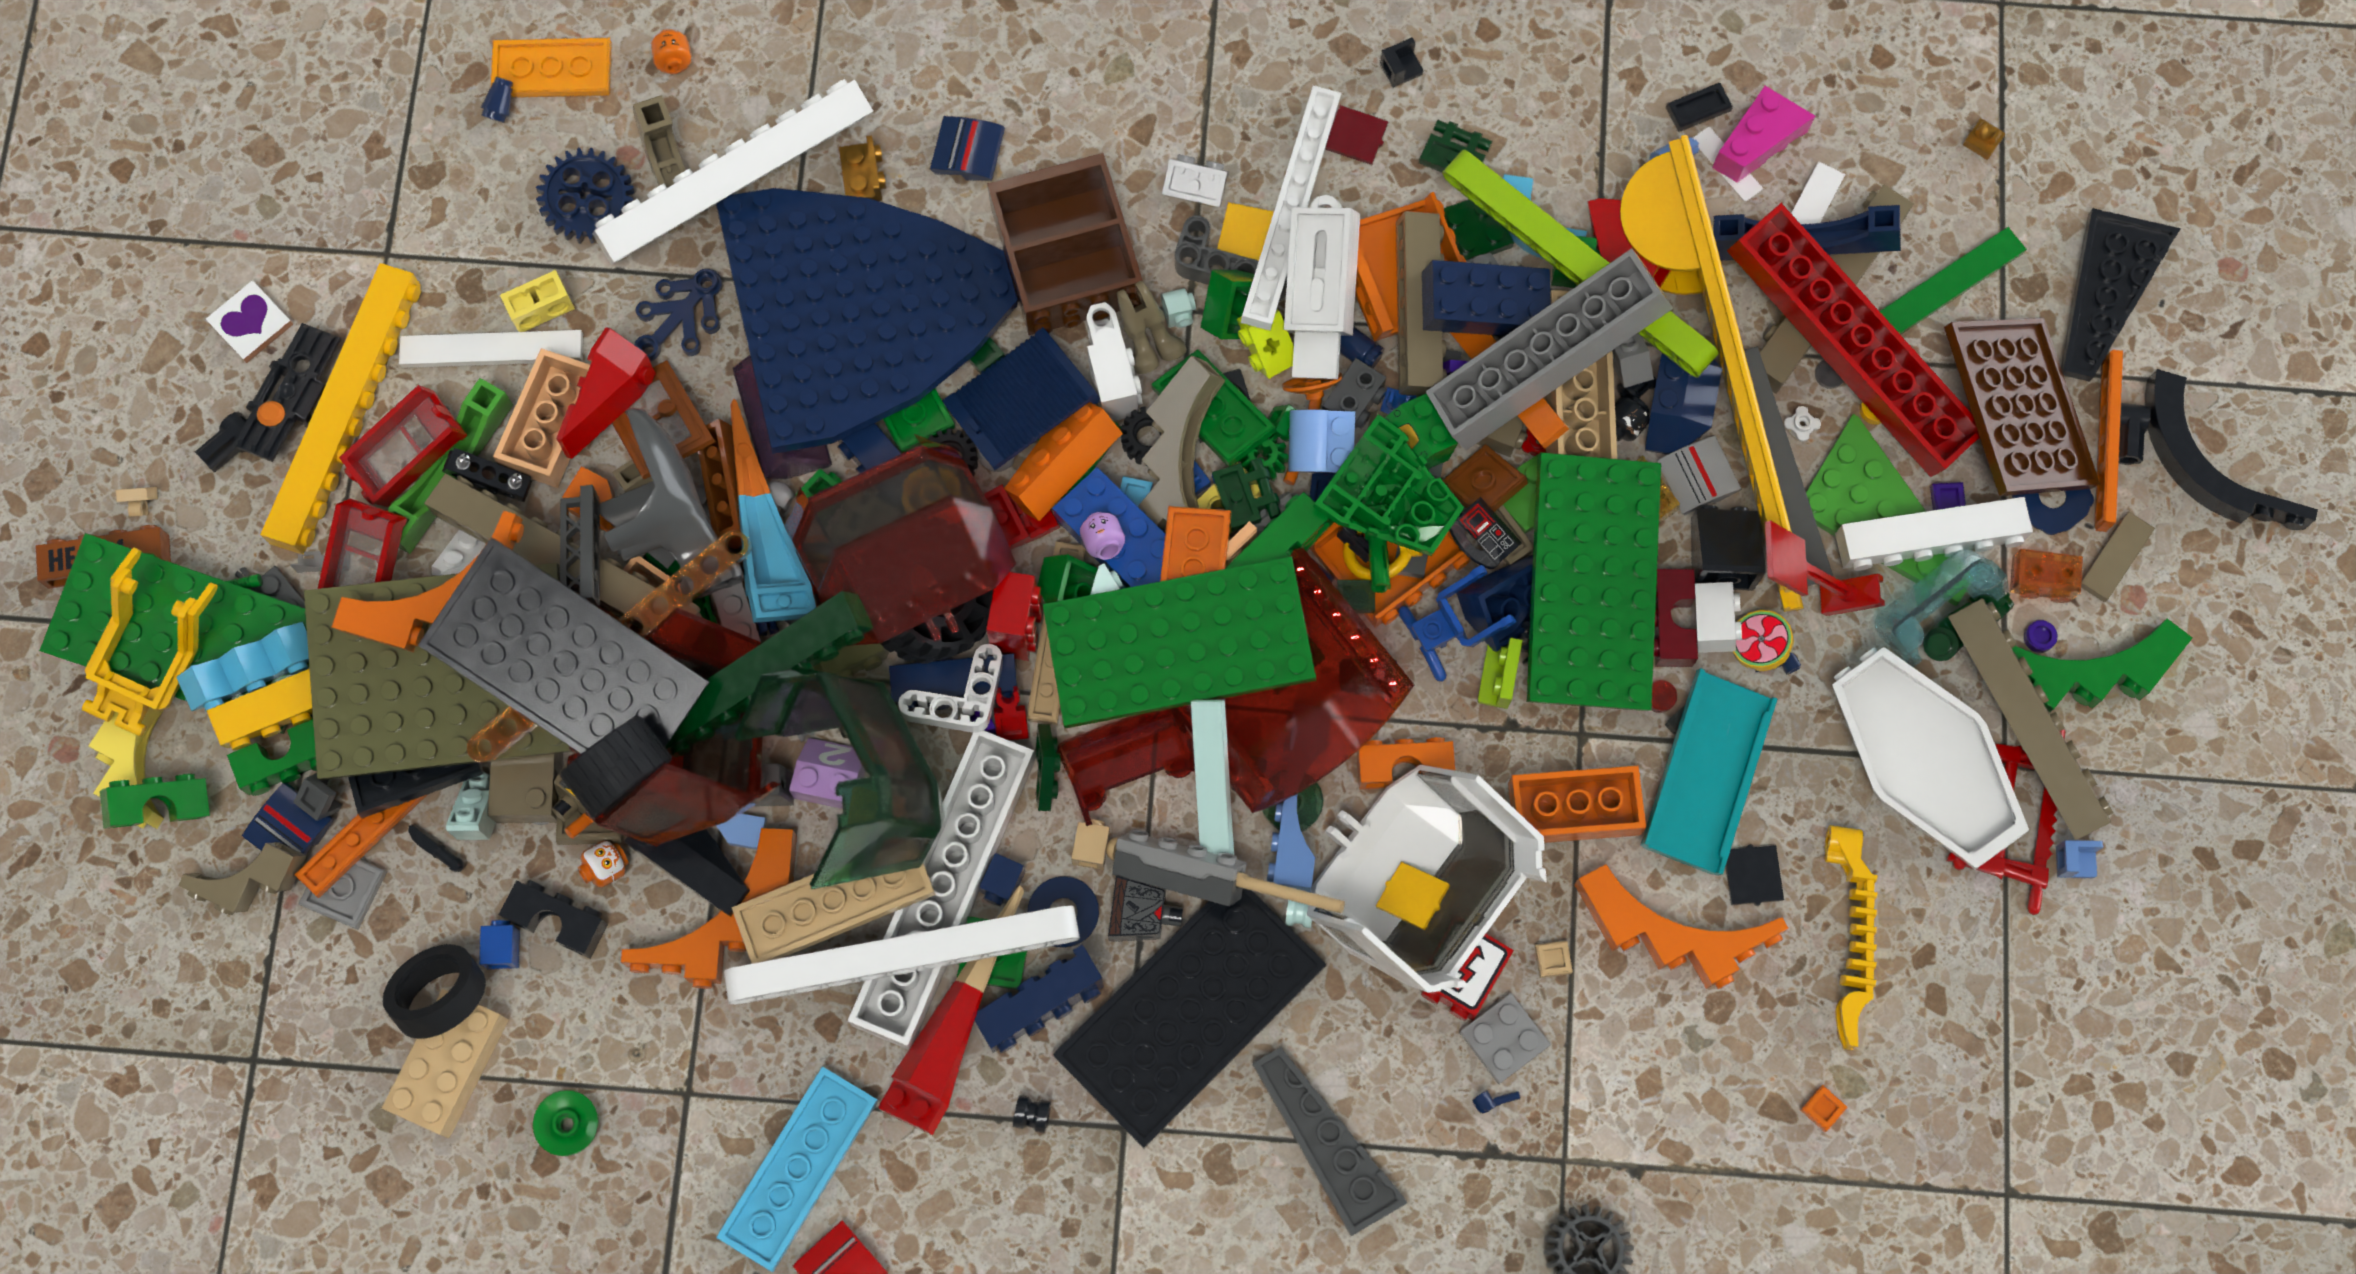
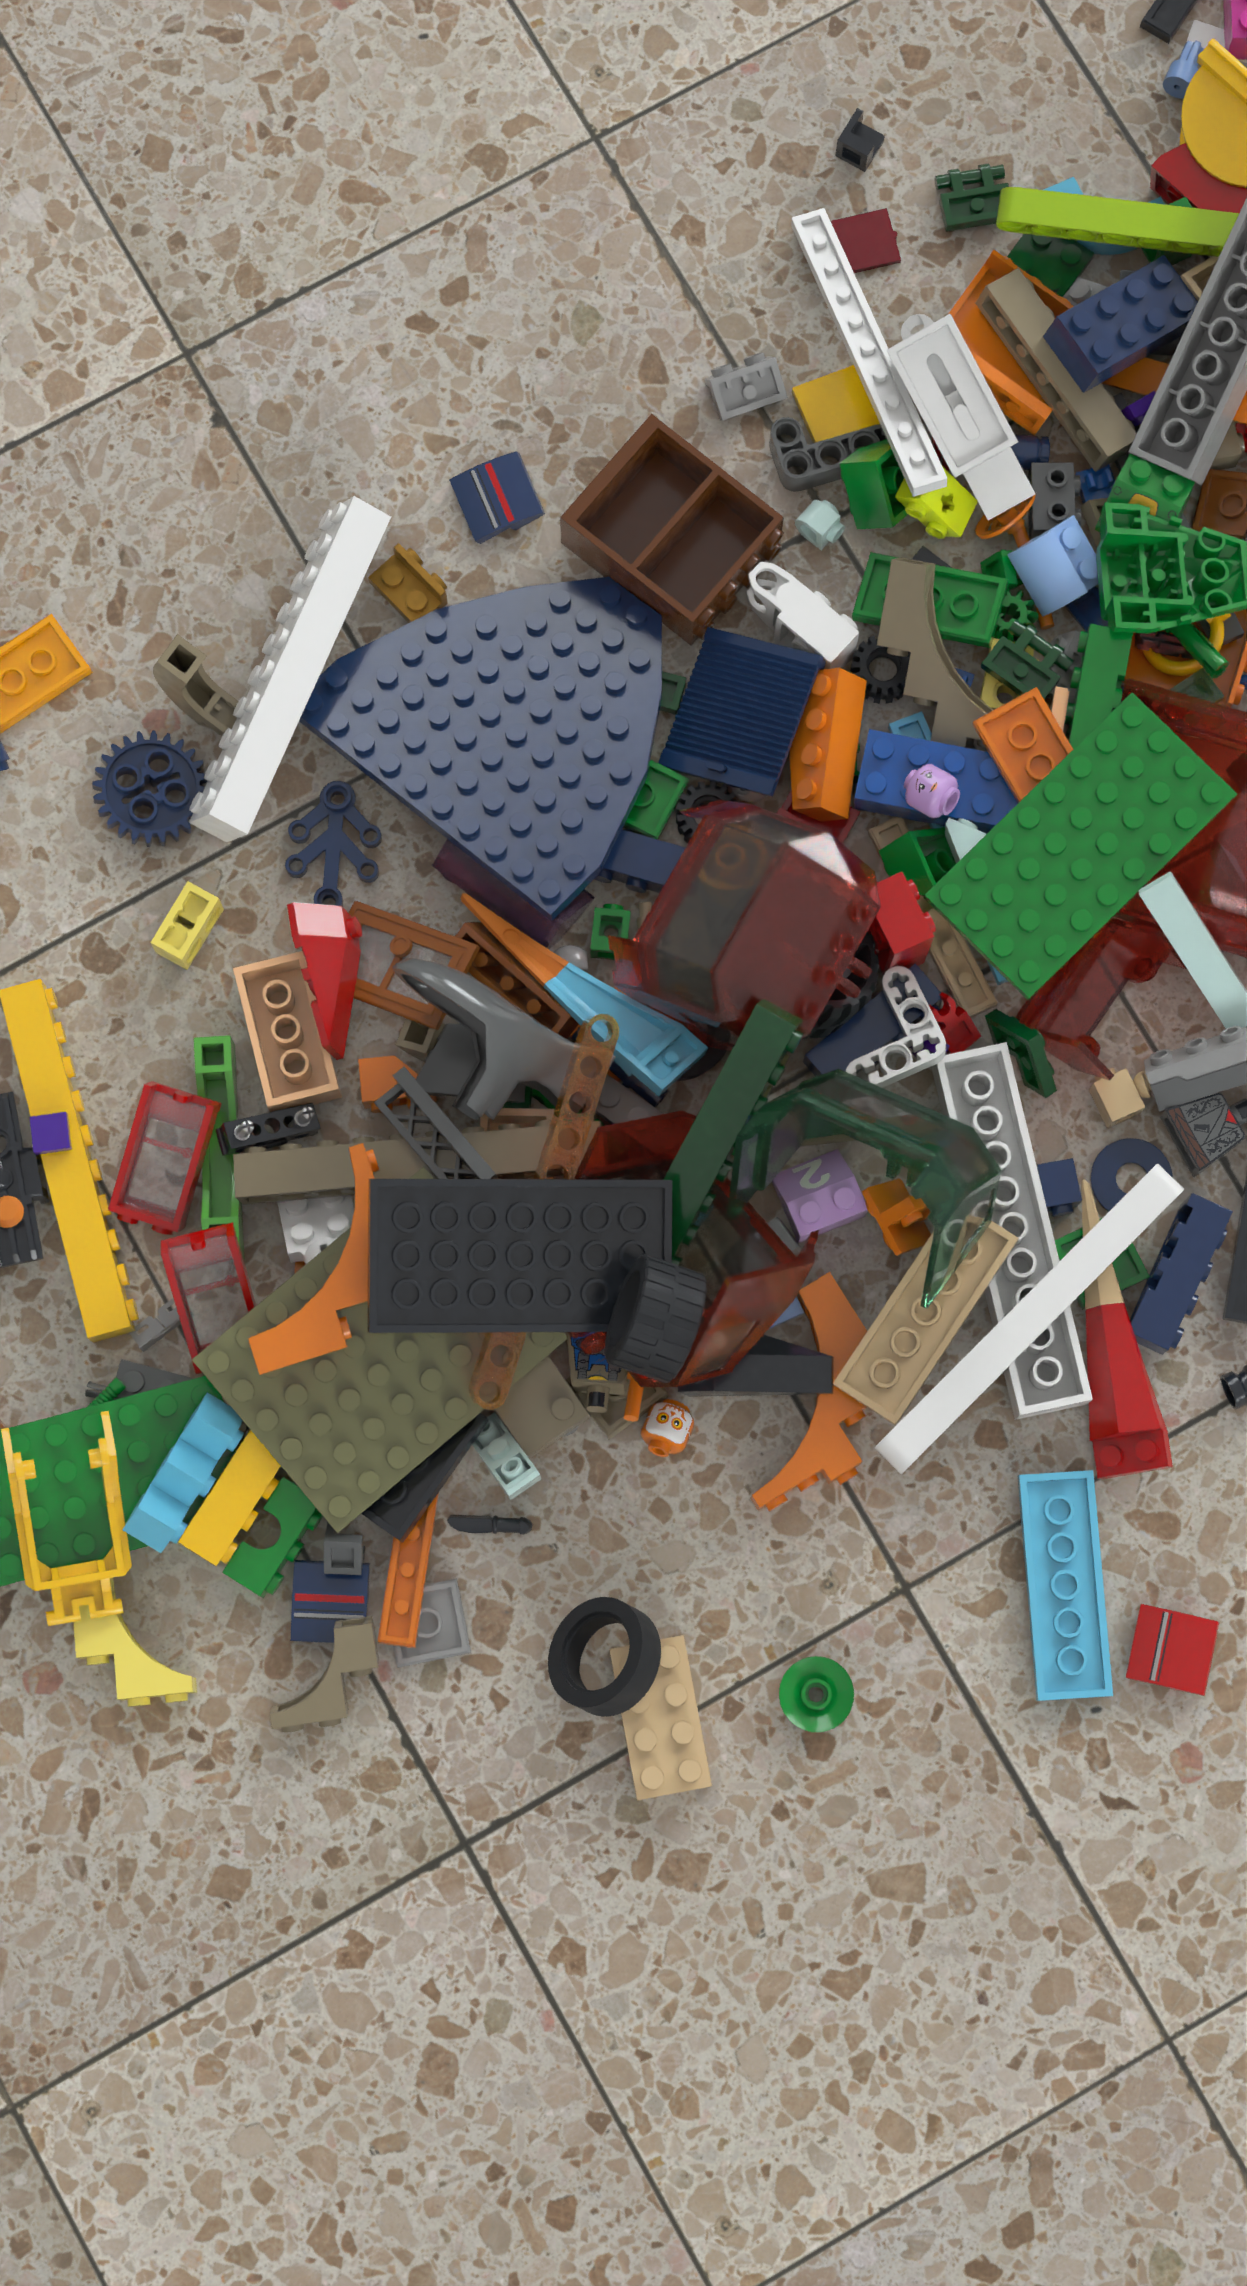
camera: 35 degrees left, 5 degrees up
(124, 803) = (167, 1685): green arch -> none
(338, 380) = (50, 1133): none -> dark purple tile
(487, 348) = (167, 1004): white tile -> none
(499, 945) = (625, 1572): blue brick -> none
(529, 905) = (690, 1501): black arch -> none
(671, 51) = (127, 587): orange head -> none
(1152, 317) = (810, 548): dark tan piece -> none

